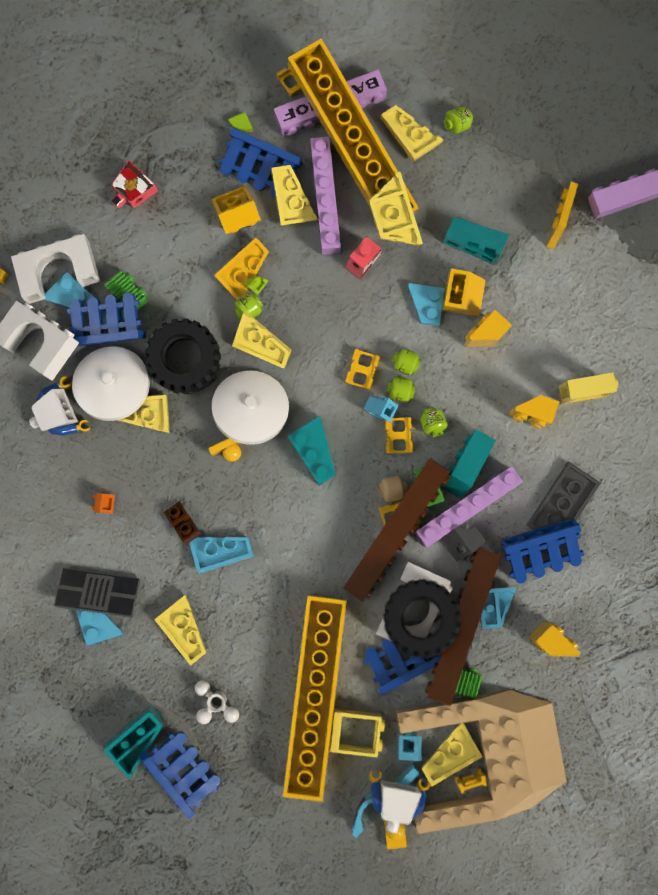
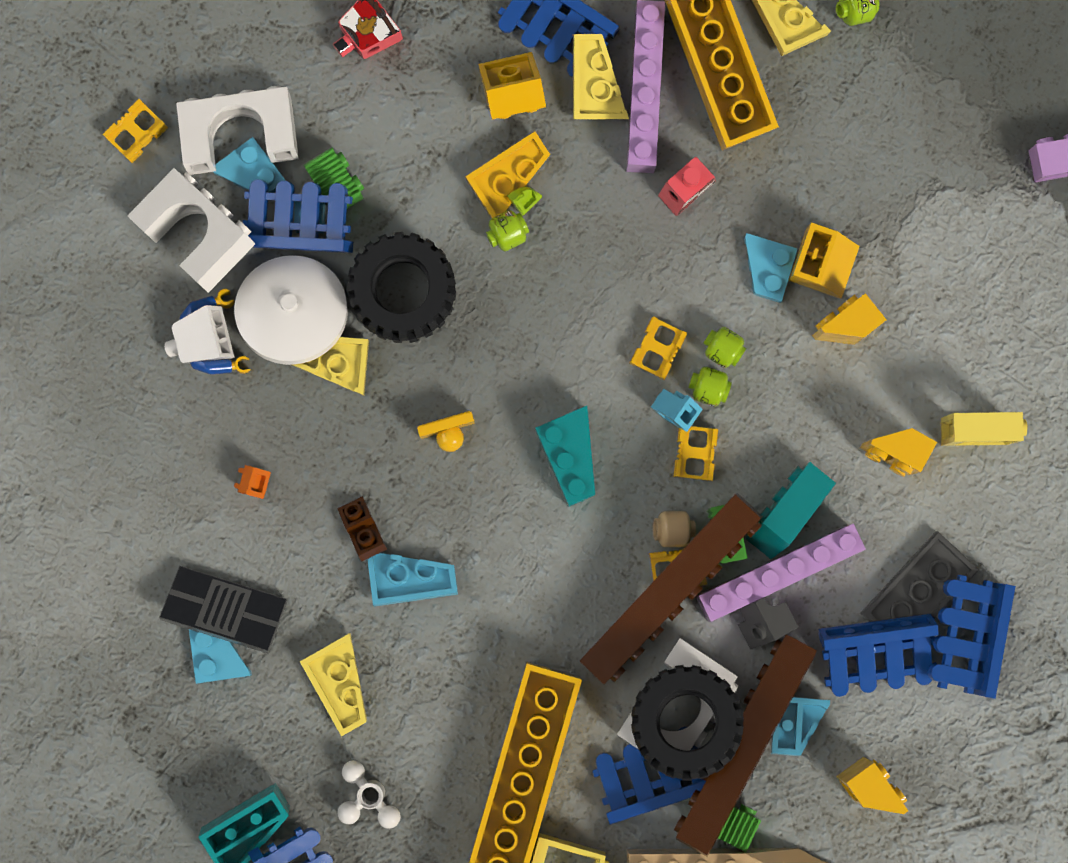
camera: 10 degrees right, 0 degrees up
(250, 407) = (487, 377): white dish -> none
(260, 342) = (517, 285): light yellow wing -> none
(394, 213) = (742, 130): light yellow wing -> none
(433, 422) = (749, 441): lime head -> none
(476, 240) = (854, 186): teal wedge -> none
(563, 211) = (988, 166): yellow wing -> none
(614, 532) = (989, 636): none -> blue fence

